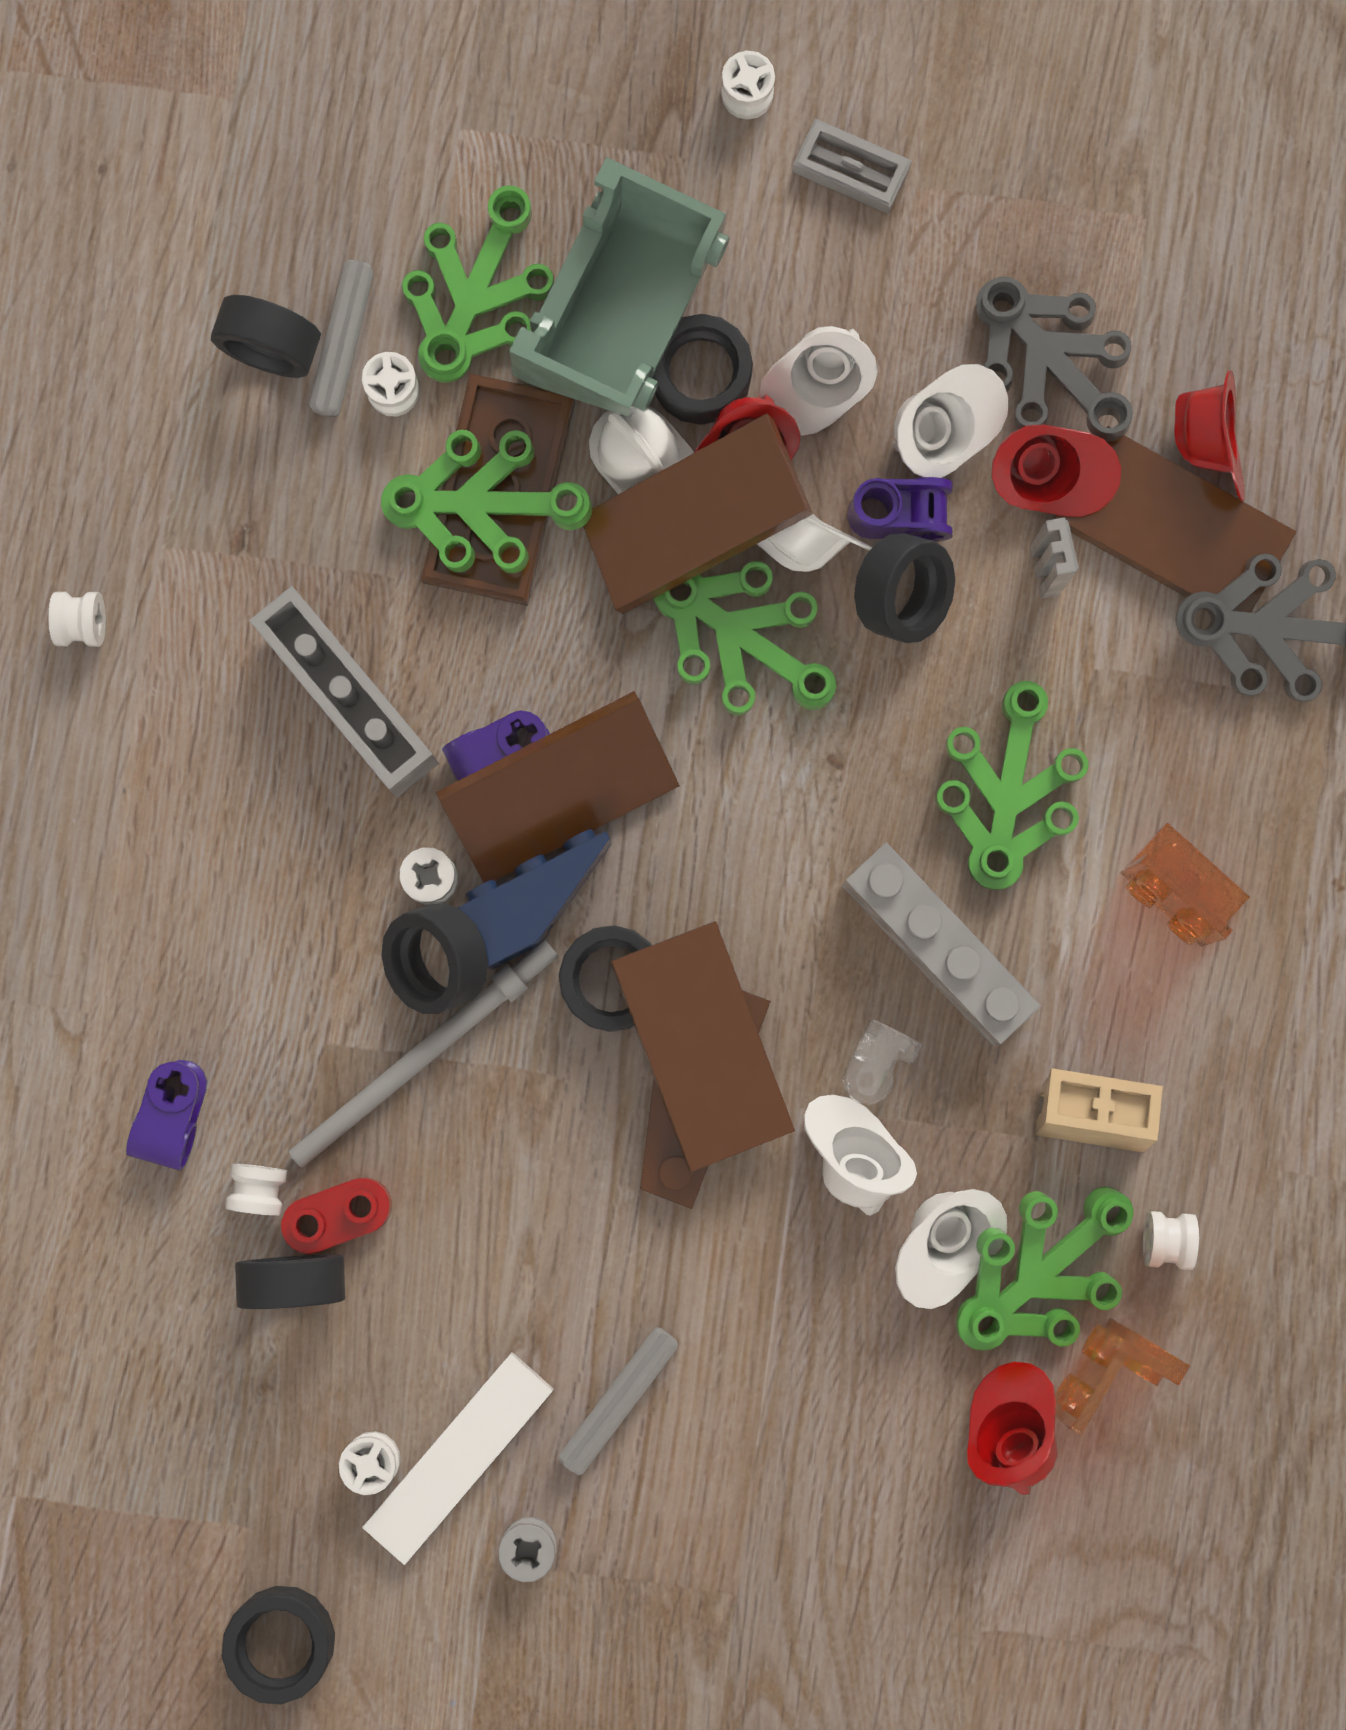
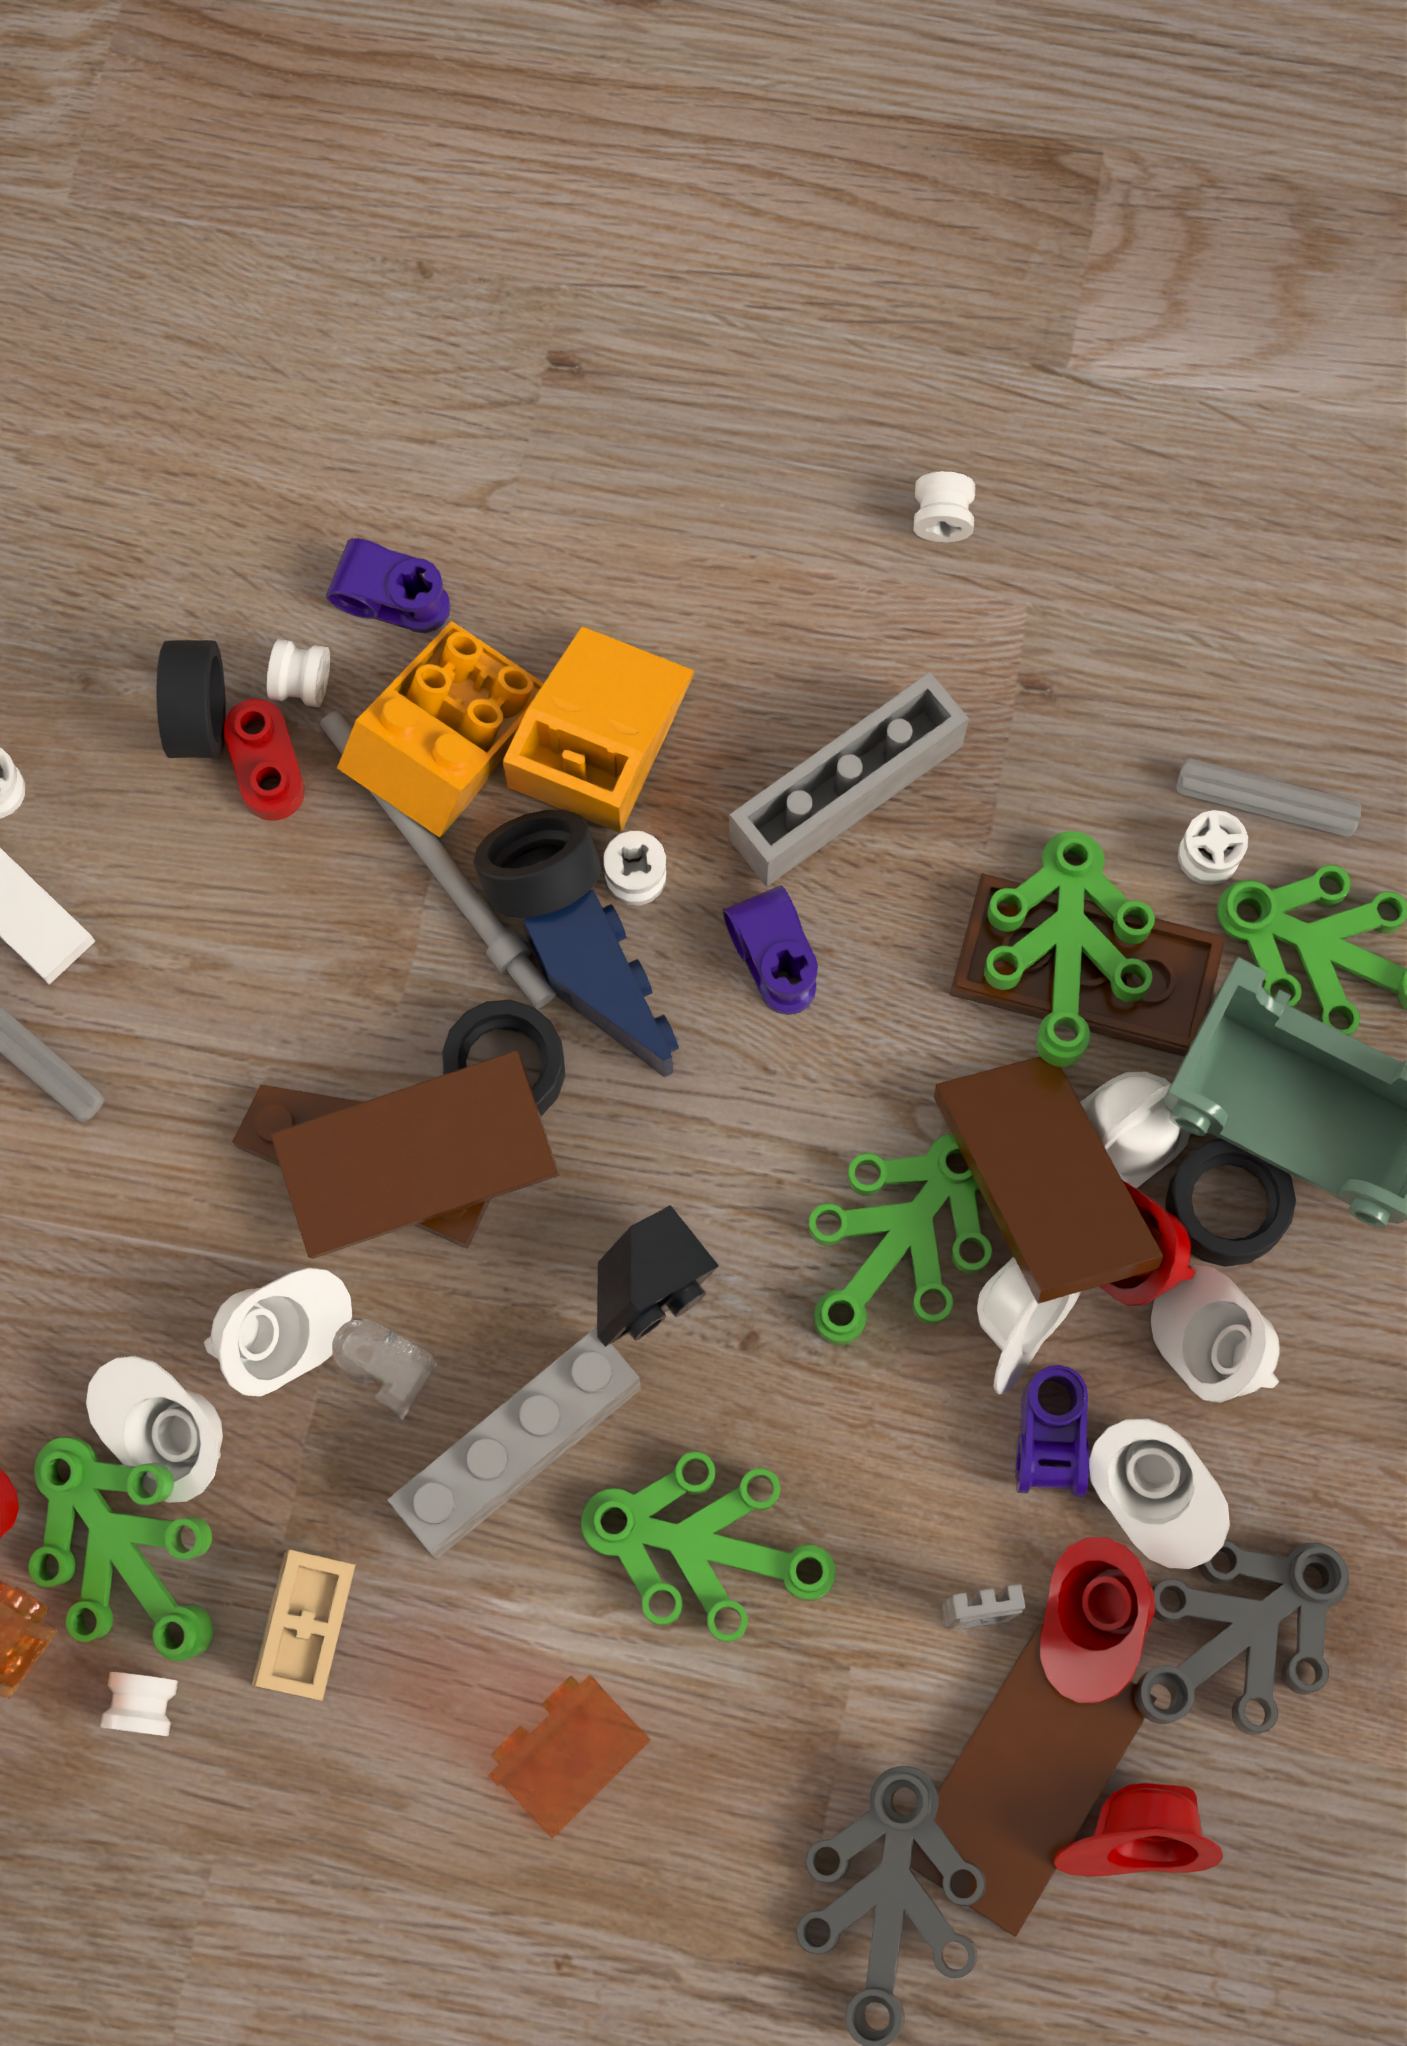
camera: 90 degrees right, 10 degrees down
(265, 336) = (1265, 707): black tyre -> none
(298, 914) = (596, 728): none -> light orange slope
(304, 1052) = (440, 728): none -> light orange slope
(558, 787) = (727, 1010): reddish brown tile -> none
(795, 841) = (647, 1273): none -> black slope
(879, 580) = (933, 1457): black tyre -> none

